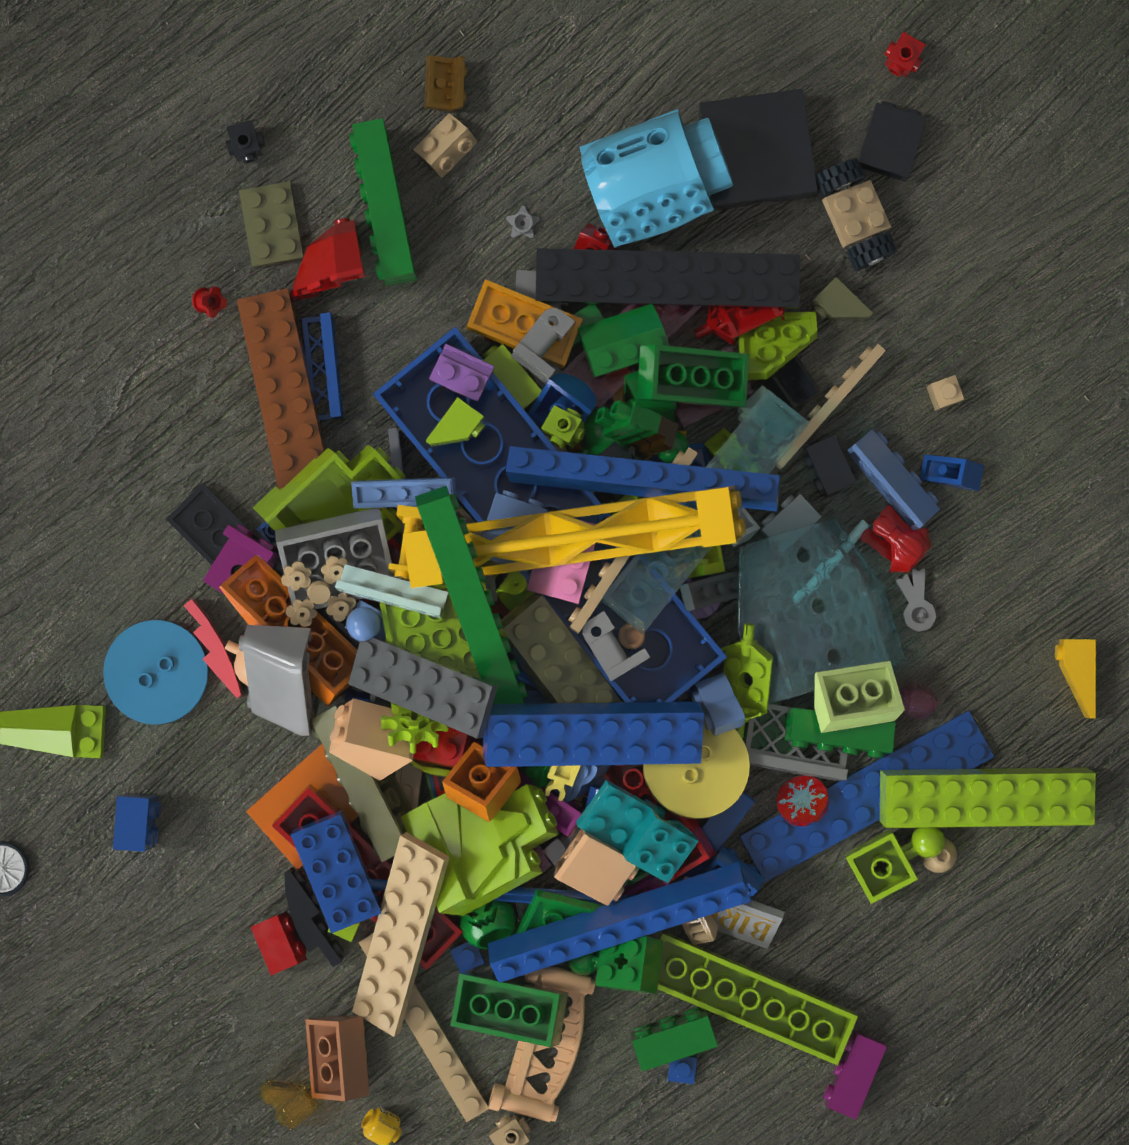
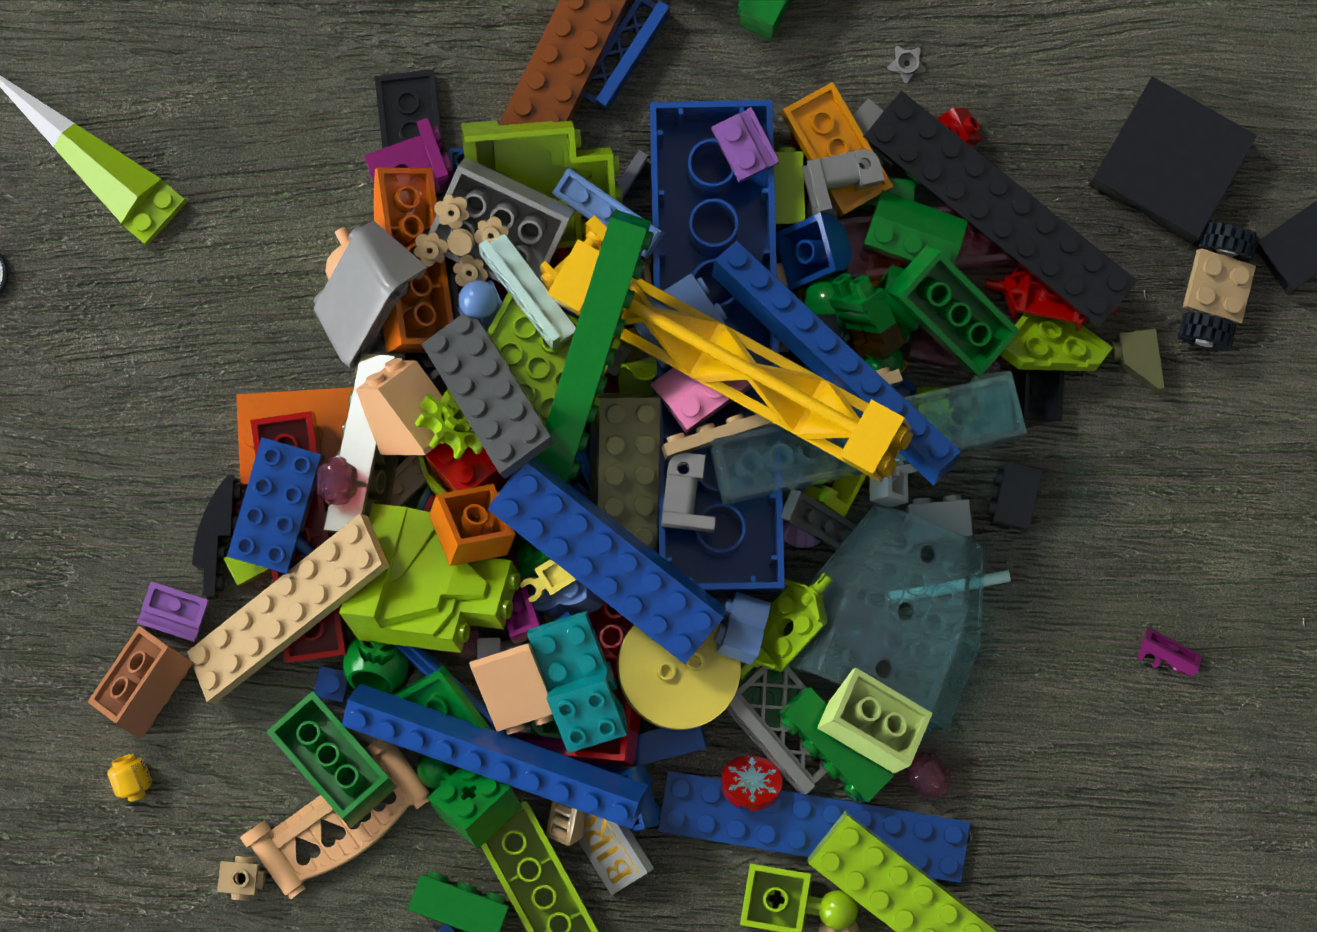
camera: 30 degrees right, 5 degrees down
(136, 822) = (131, 324): blue brick -> none
(155, 672) = (256, 206): dark azure plate -> none
(218, 659) = (322, 236): coral slope -> none
(279, 943) = (171, 535): red brick -> none
(290, 1102) = (65, 689): clear yellow slope -> none
(321, 992) = (173, 611): none -> medium lavender plate
(365, 823) = (337, 481): none -> clear pink head
(440, 1052) = (237, 754): tan plate -> none
(457, 425) = (703, 187): lime slope -> none
(564, 427) = (799, 265): lime brick -> none
(630, 637) = (710, 500): medium nougat tile -> none
(654, 176) = (1059, 108): medium azure piece -> none
(834, 397) = (1070, 438): tan plate -> none
(893, 480) = (1064, 553): medium blue slope -> none
(902, 544) = (1027, 621): red piece -> none
(919, 613) = (994, 696): light grey piece -> none
(945, 393) = (1174, 513): tan brick -> none
(952, 472) = (1125, 590): blue slope -> none
(1016, 489) = (1177, 656): none -> magenta plate
(1078, 666) = (1102, 863): yellow slope -> none

